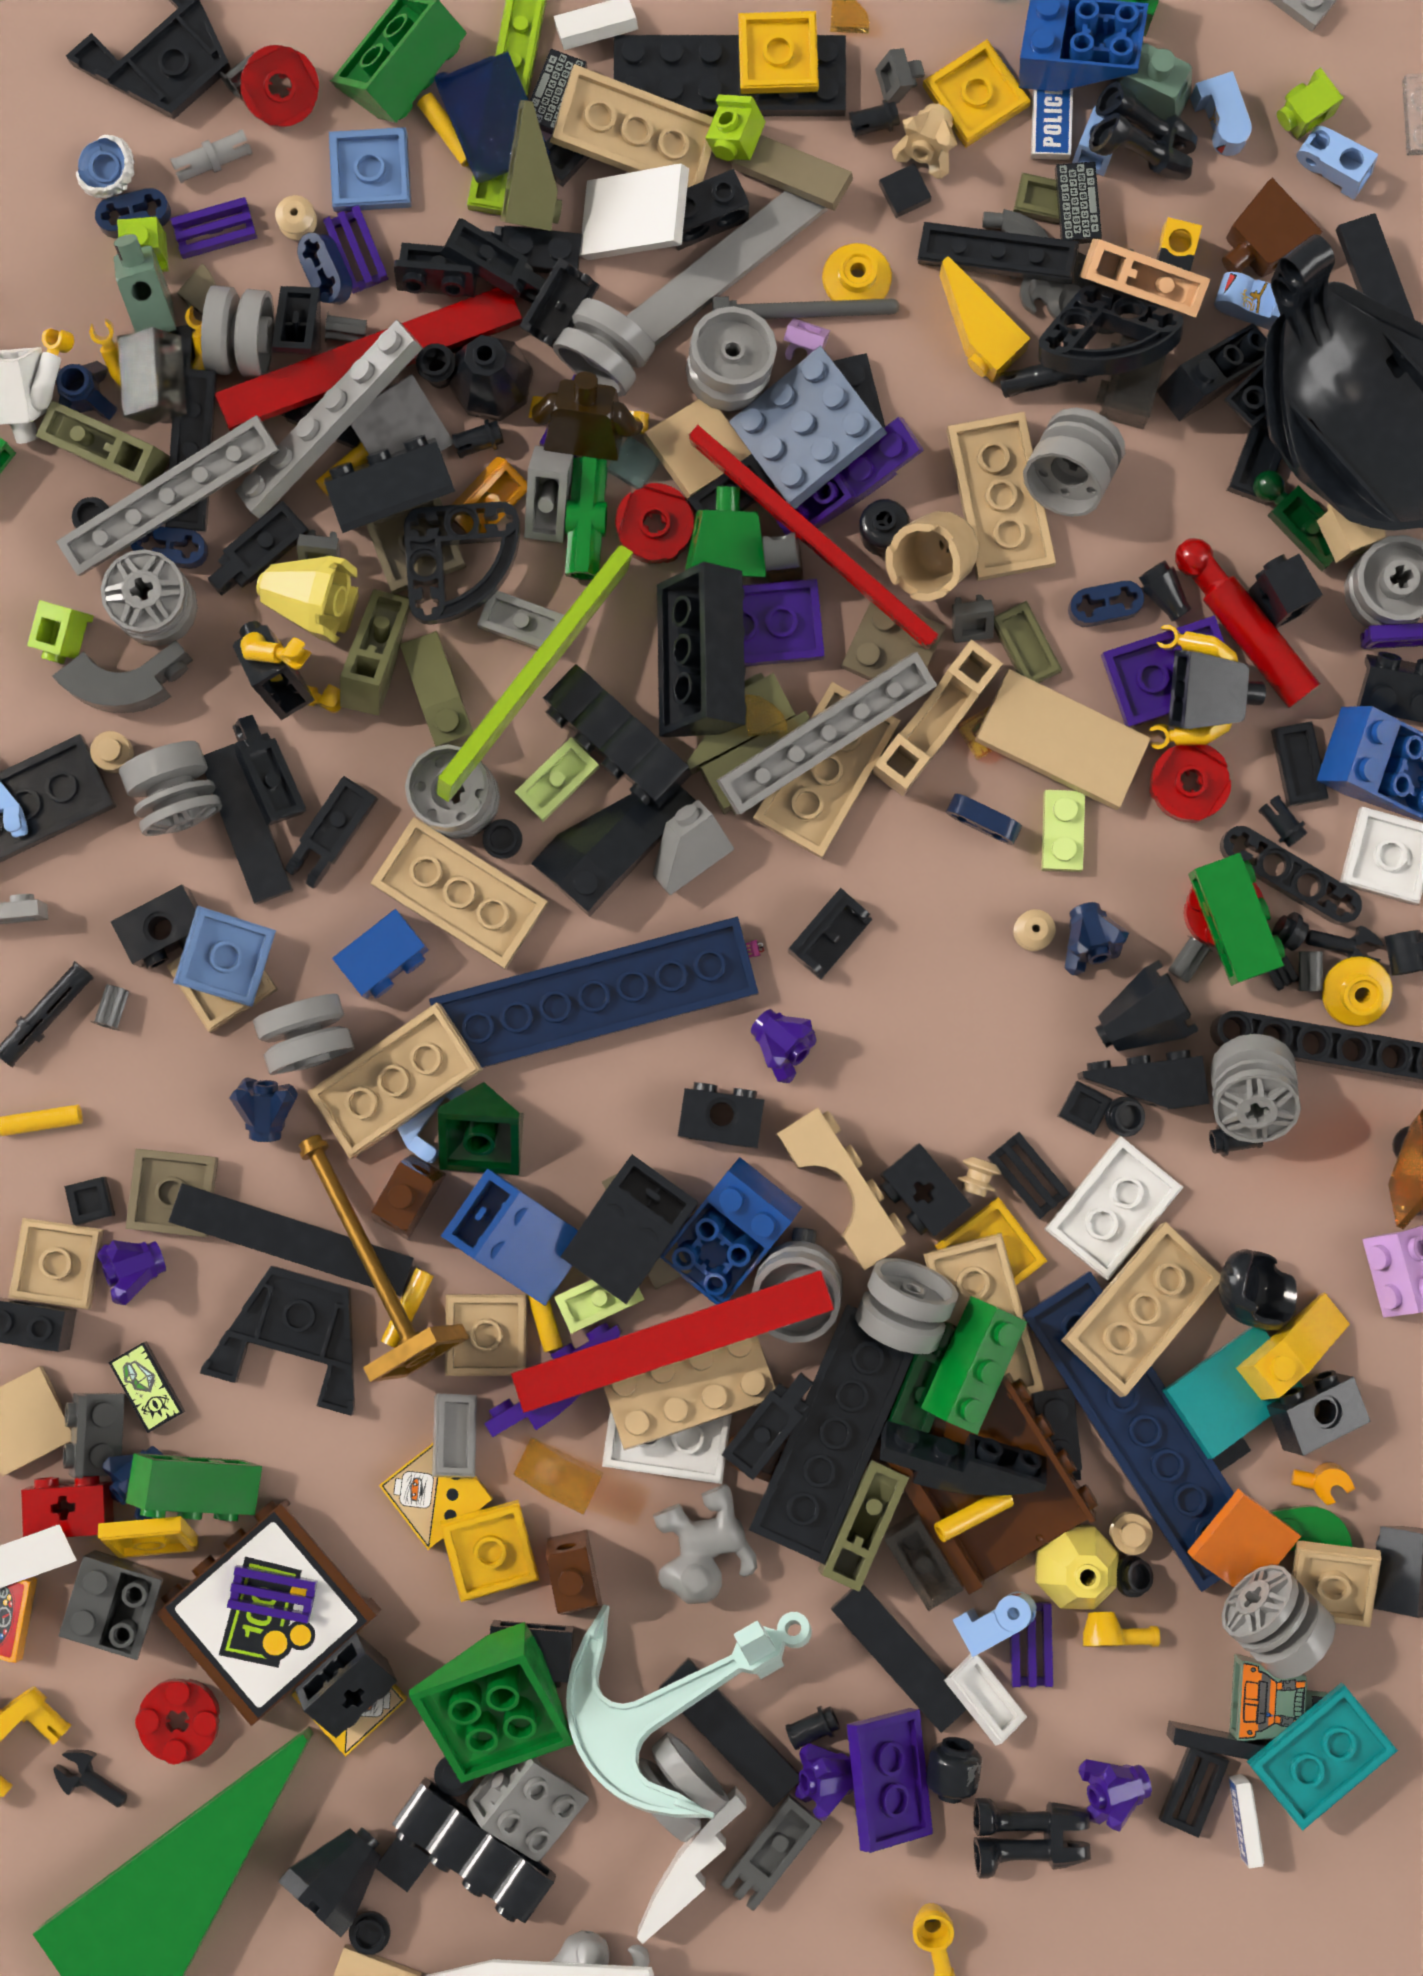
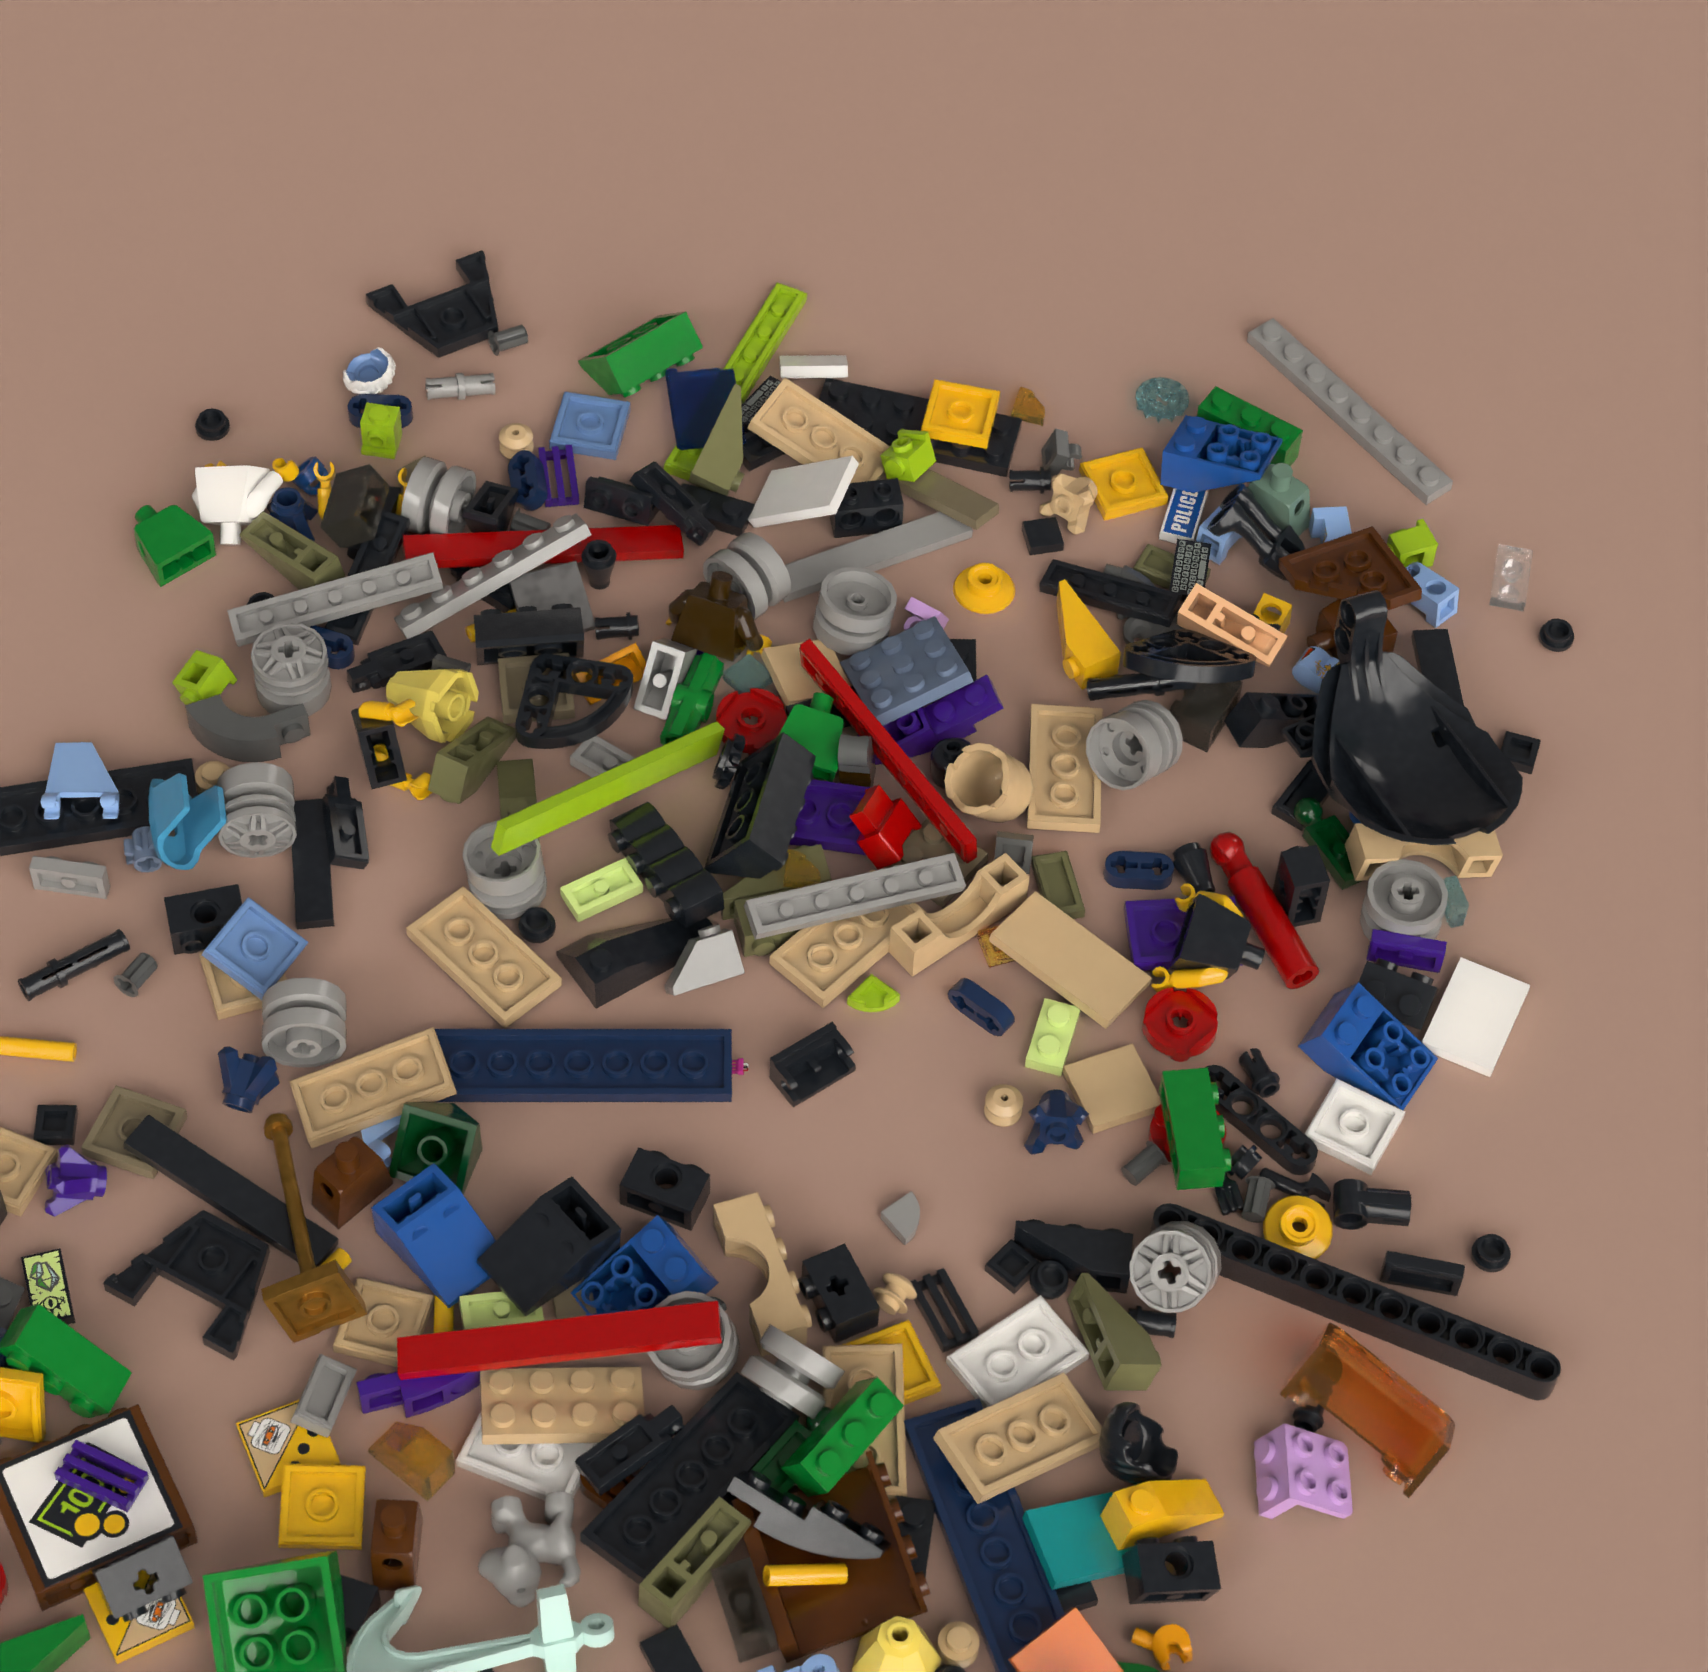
camera: 10 degrees right, 30 degrees down
(71, 859) = (141, 851): none -> sand blue gear
(79, 323) = (307, 476): none -> blue tile
(98, 826) = (193, 819): none -> dark azure piece
(143, 285) = (378, 455): sand green torso -> none
(210, 214) = (444, 431): dark purple tile -> none
(286, 64) = (546, 335): red plate -> none
(332, 829) = (385, 883): black hinge -> none
(381, 955) = (396, 986): blue brick -> none
(442, 124) = (662, 408): yellow piece -> none
(491, 378) = (642, 581): black cone -> none
(558, 302) = (712, 537): black hinge -> none
(646, 589) = (728, 761): none -> black gear
(783, 1042) = (743, 1139): dark purple rock -> none
(814, 308) = (955, 603): dark grey piece -> none
(833, 634) = (883, 826): none -> red piece
(868, 829) = (873, 996): none -> lime tile
(964, 1082) = (903, 1217): none -> light grey tile
(1137, 876) = (1112, 1088): none -> tan tile
(1145, 1013) = (1090, 1190): black cone -> none
(1208, 1174) = (1113, 1338): none -> olive slope
(1261, 165) = (1352, 567): none -> reddish brown plate
(1299, 763) = (1284, 1033): black tile -> none

